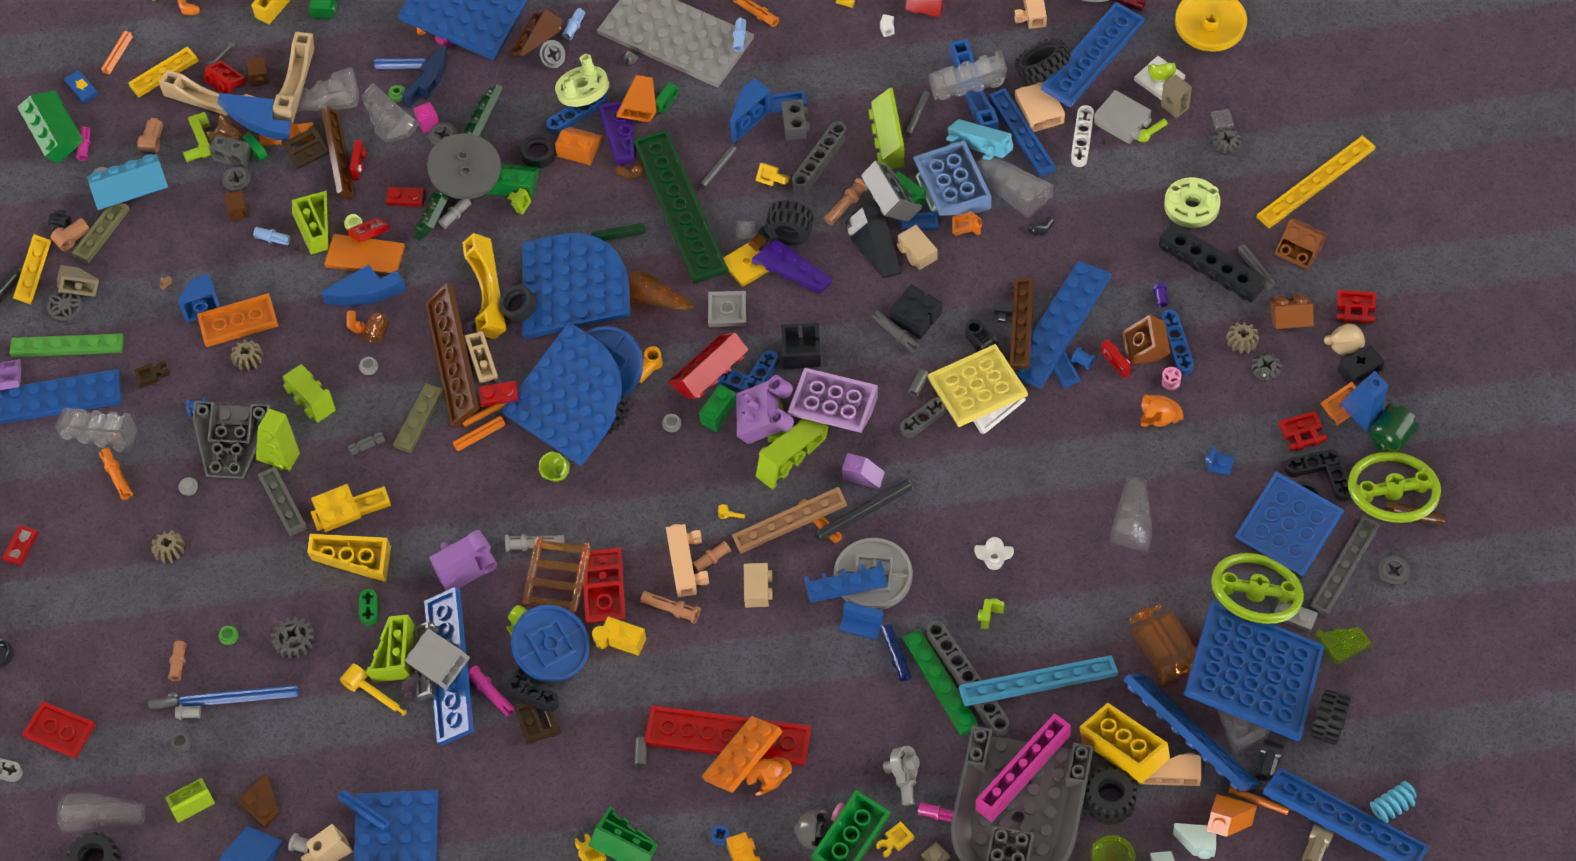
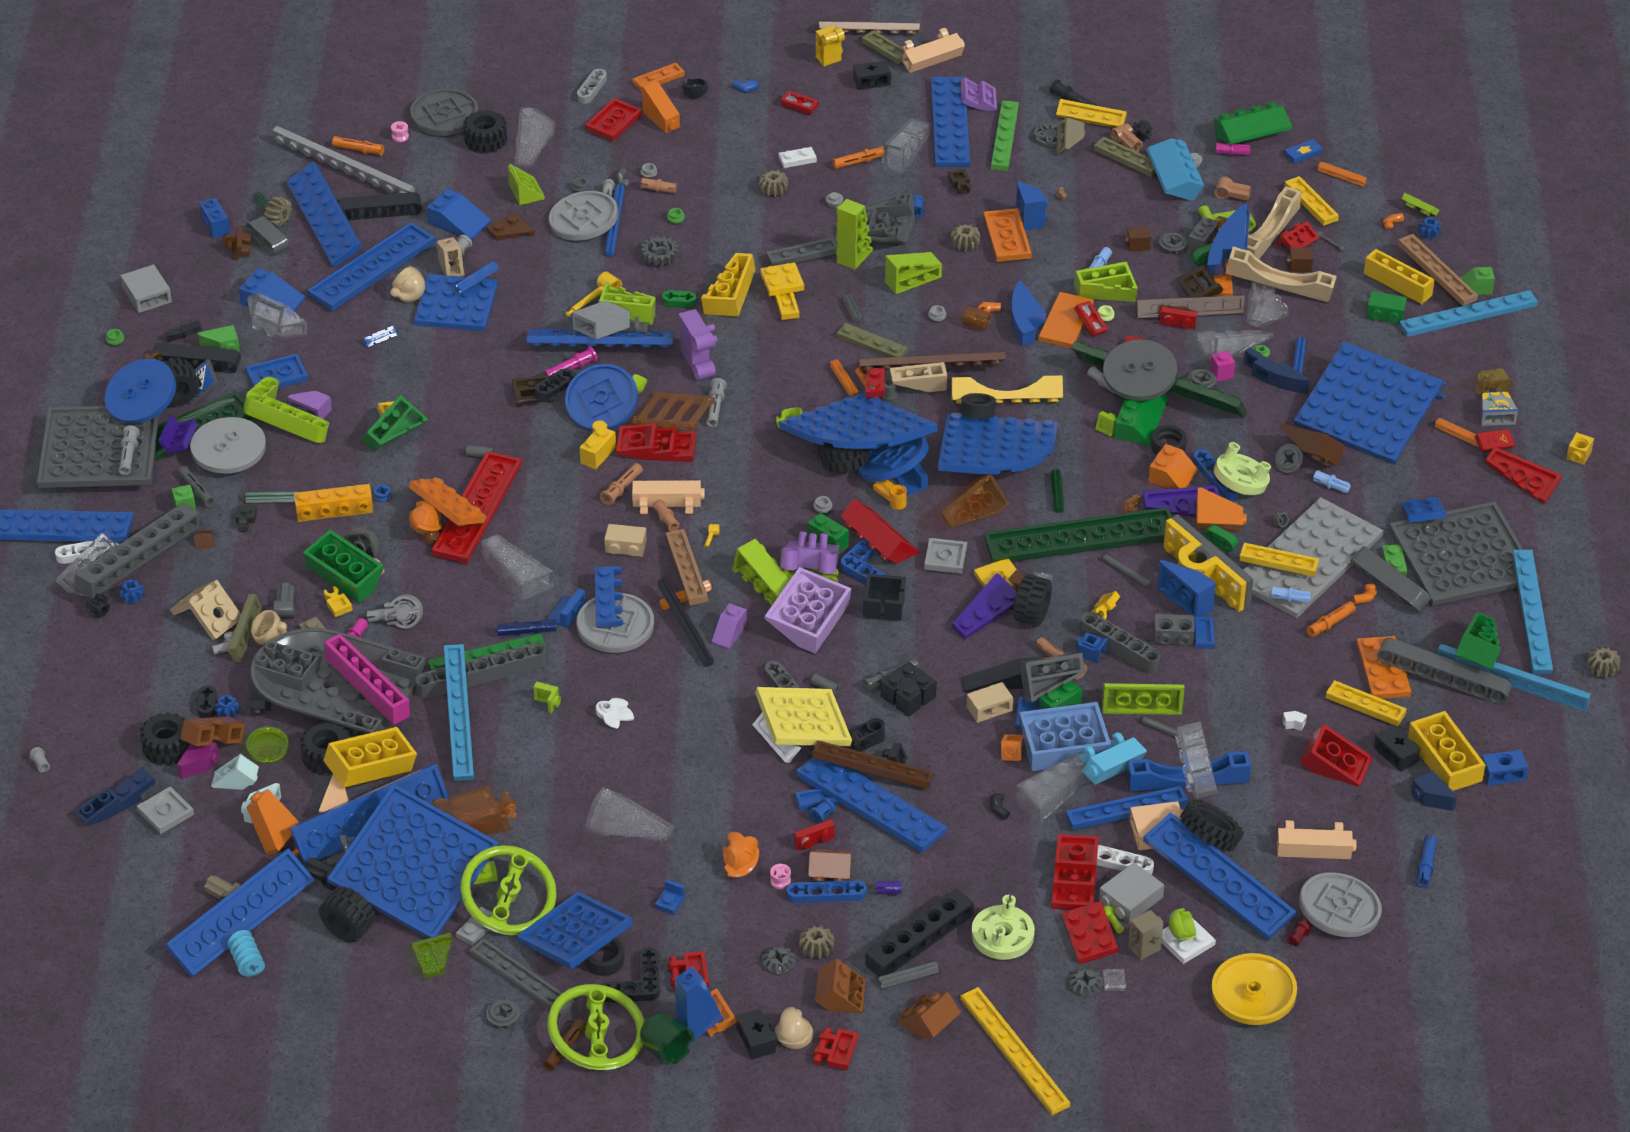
camera: 95 degrees right, 15 degrees down
(45, 679) = (659, 107): none -> orange slope
(115, 534) = (797, 157): none -> white plate
(146, 673) = (648, 170): none -> light grey plate
(237, 726) = (583, 215): none -> light grey plate
(696, 46) = (1279, 559): none -> yellow plate
(711, 100) = (1201, 555): none -> yellow piece
(817, 677) = (516, 568): none -> clear wedge
(829, 185) = (1091, 647): none -> blue window
(1109, 158) = (1075, 871): none -> red slope
(1173, 142) = (1090, 932): none -> red plate

